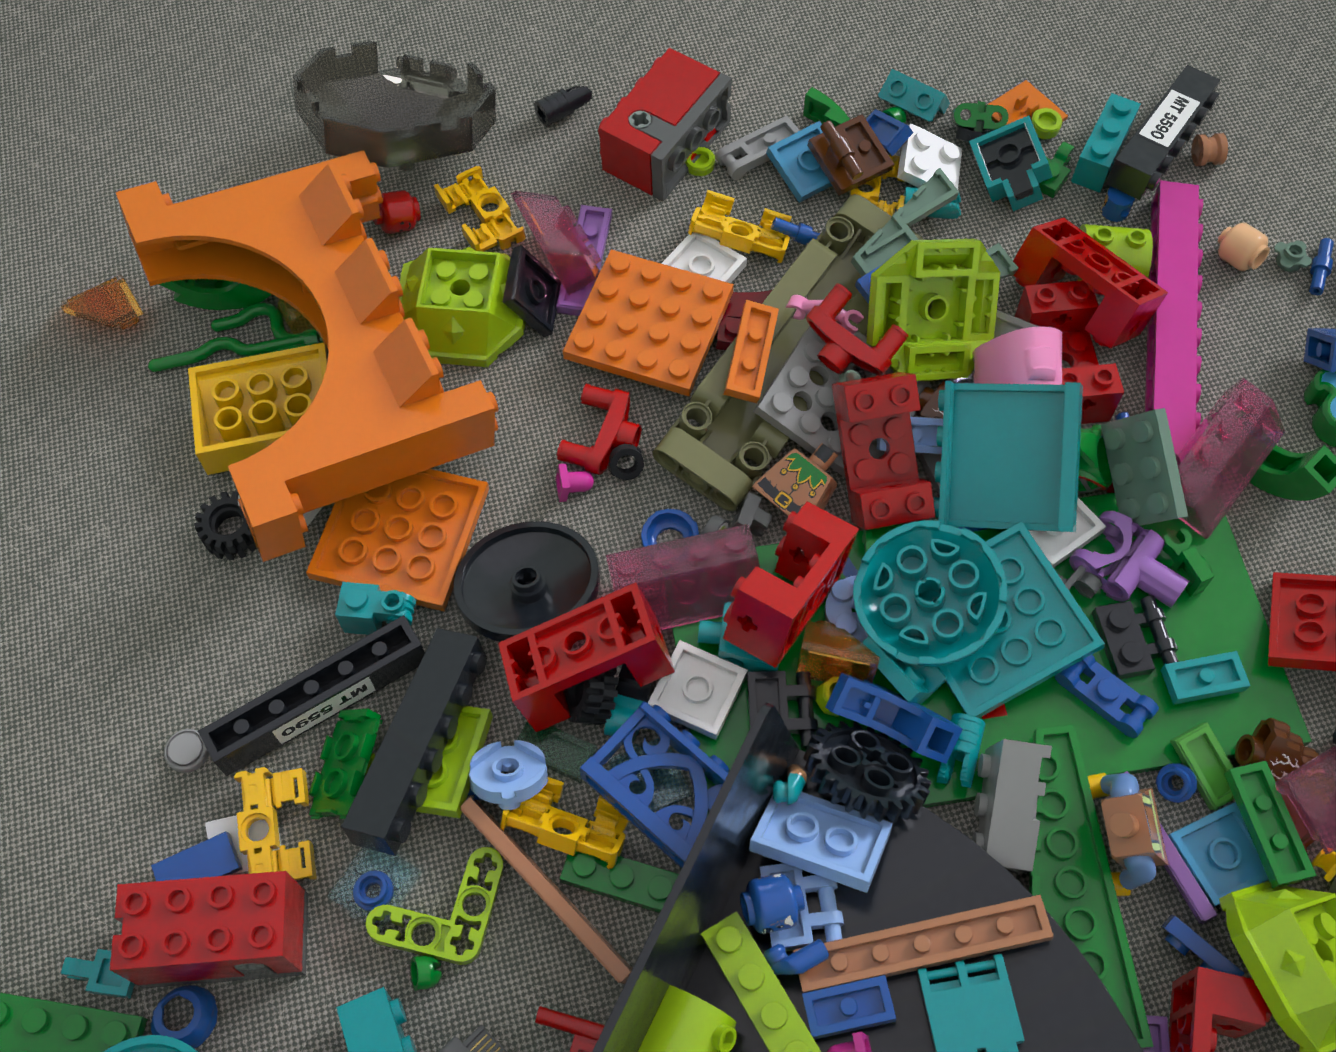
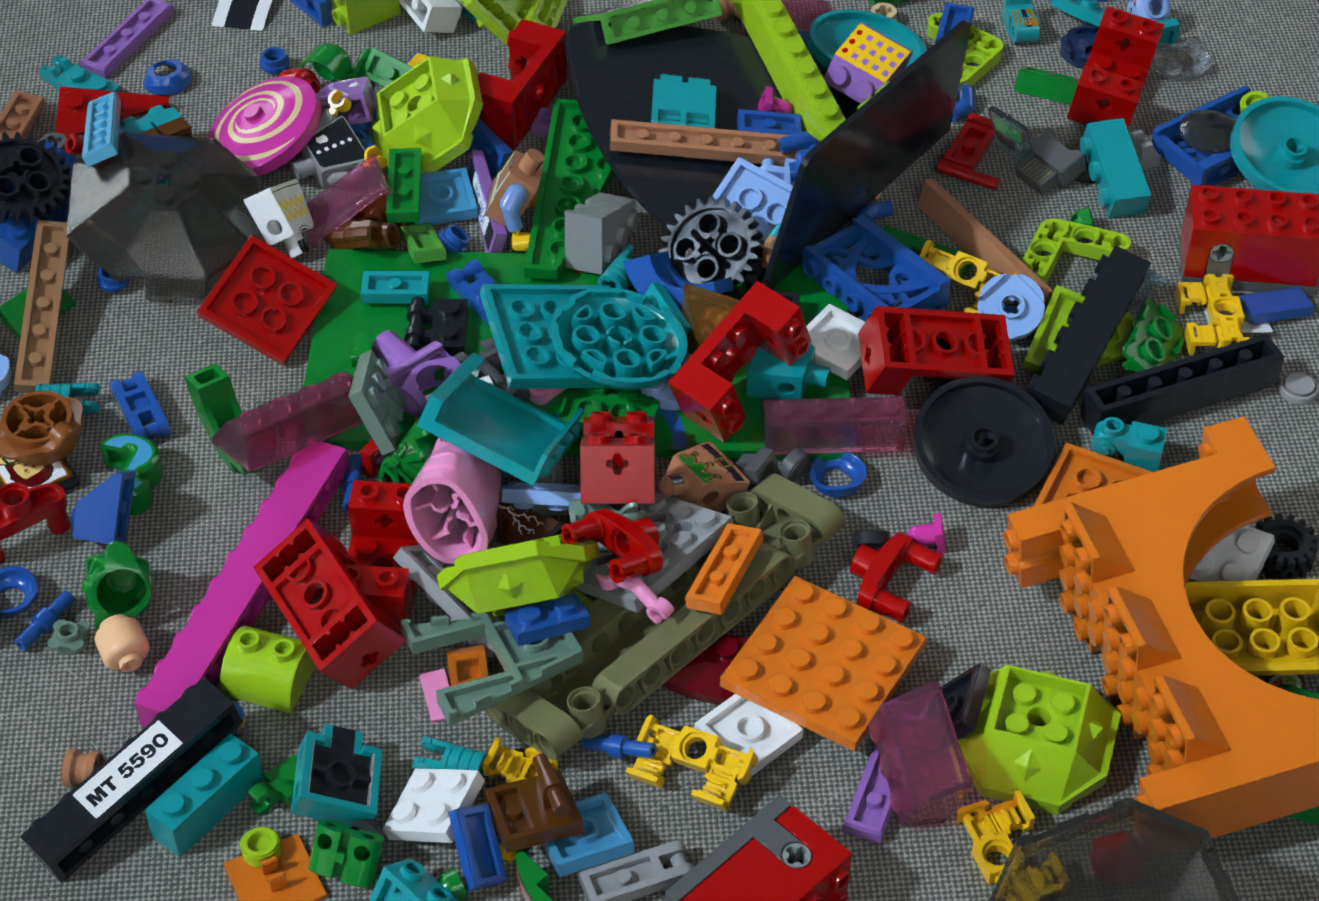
camera: 170 degrees left, 15 degrees down
(1280, 287) = (117, 583): none -> green piece

